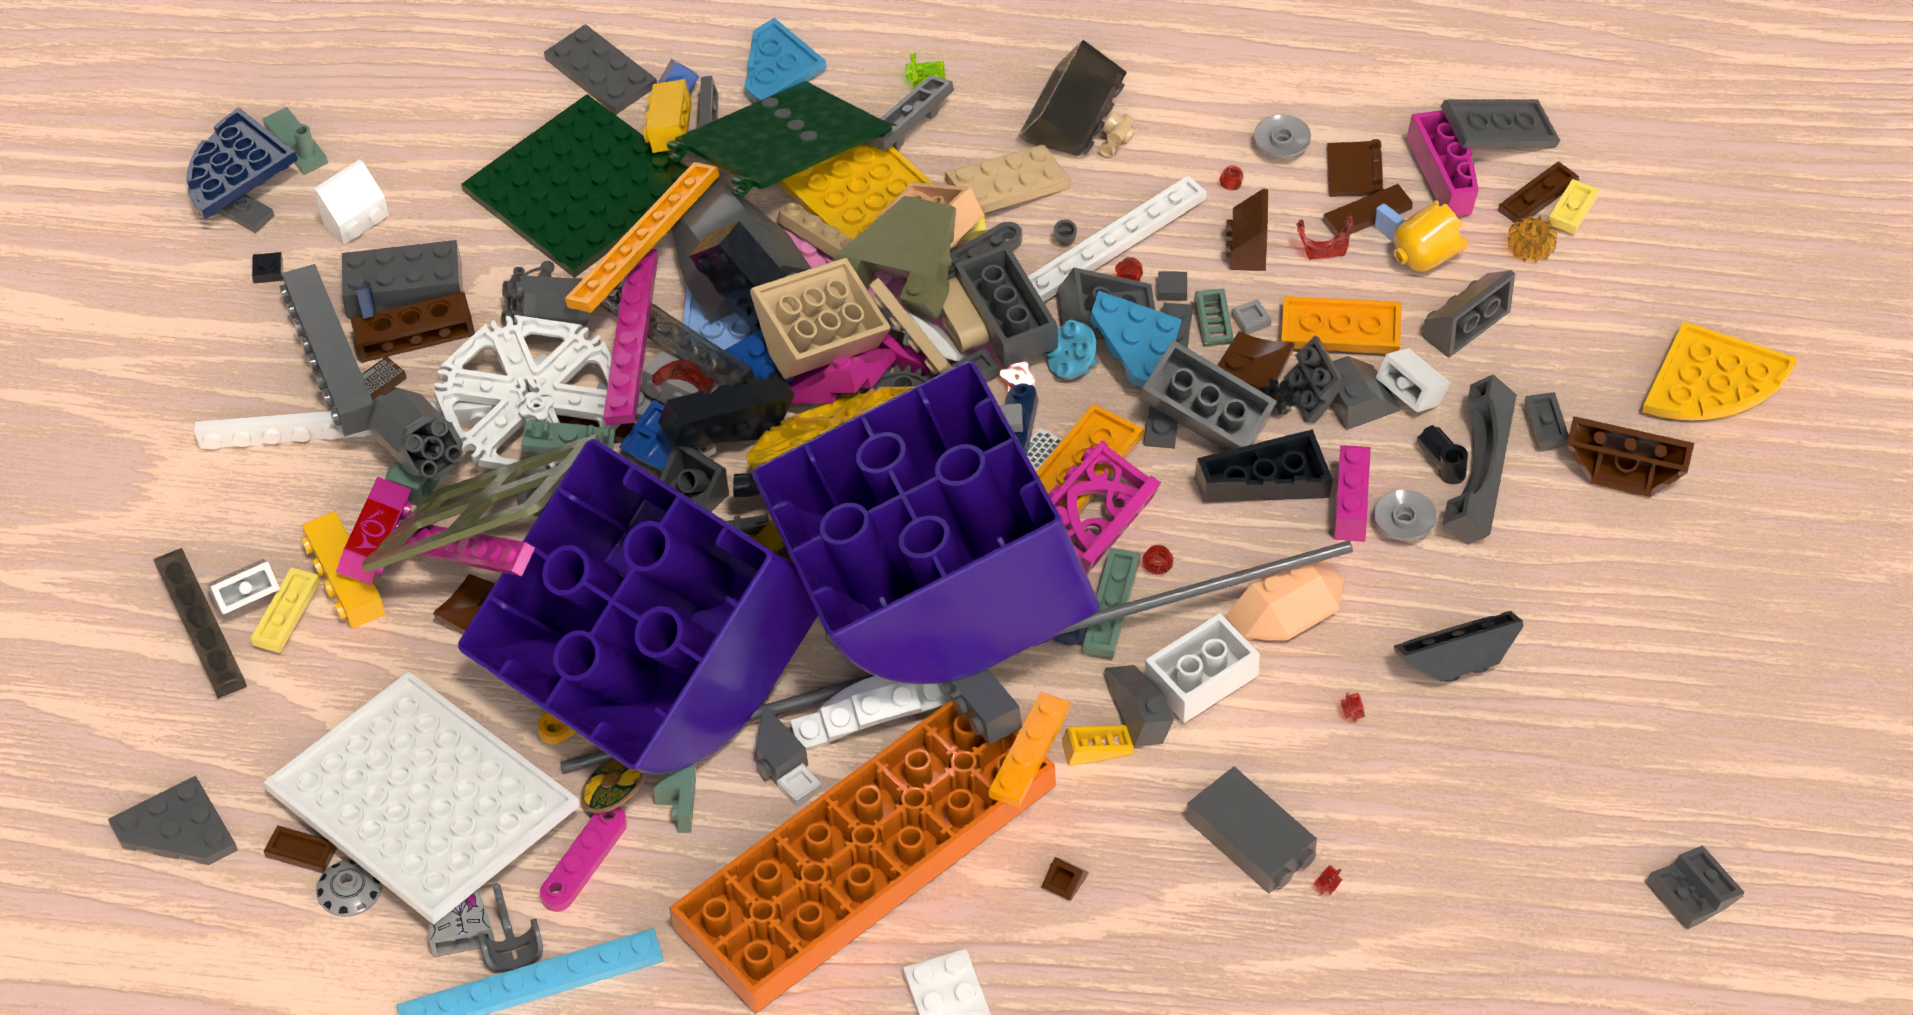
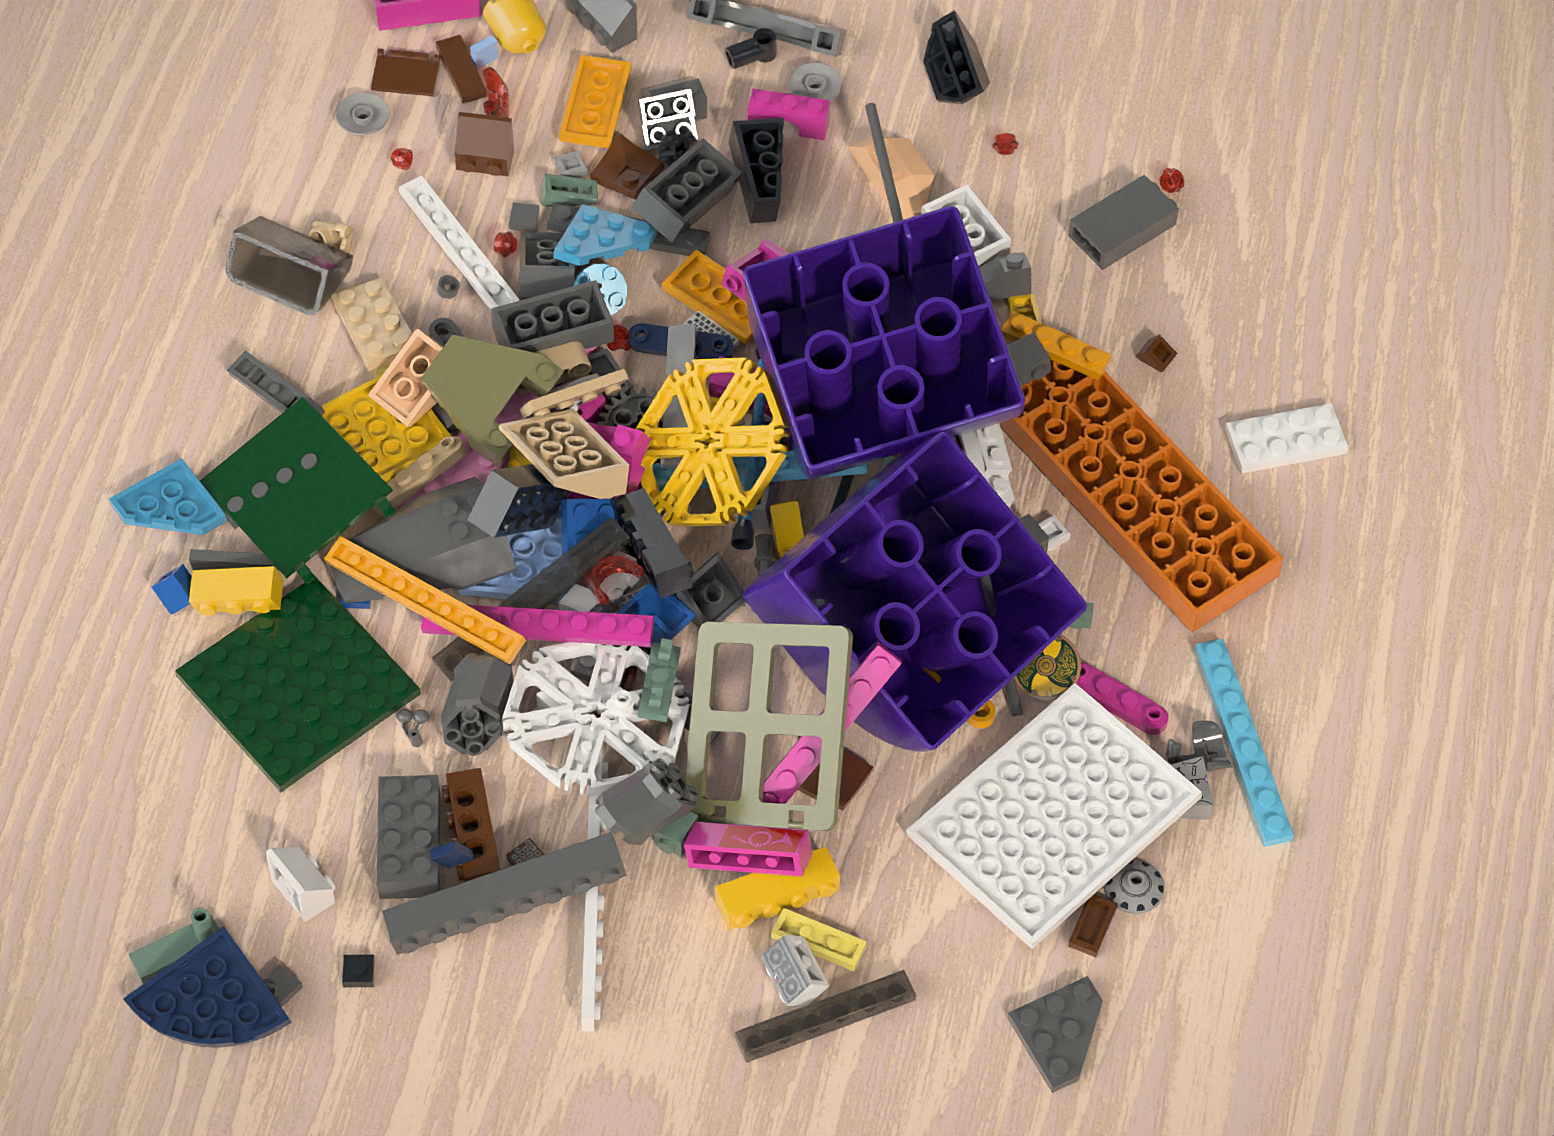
camera: 90 degrees left, 5 degrees up
(600, 69) = (136, 661): dark grey plate -> none
(920, 71) = (213, 381): clear neon green bracket -> none
(1412, 380) = (672, 57): white brick -> none

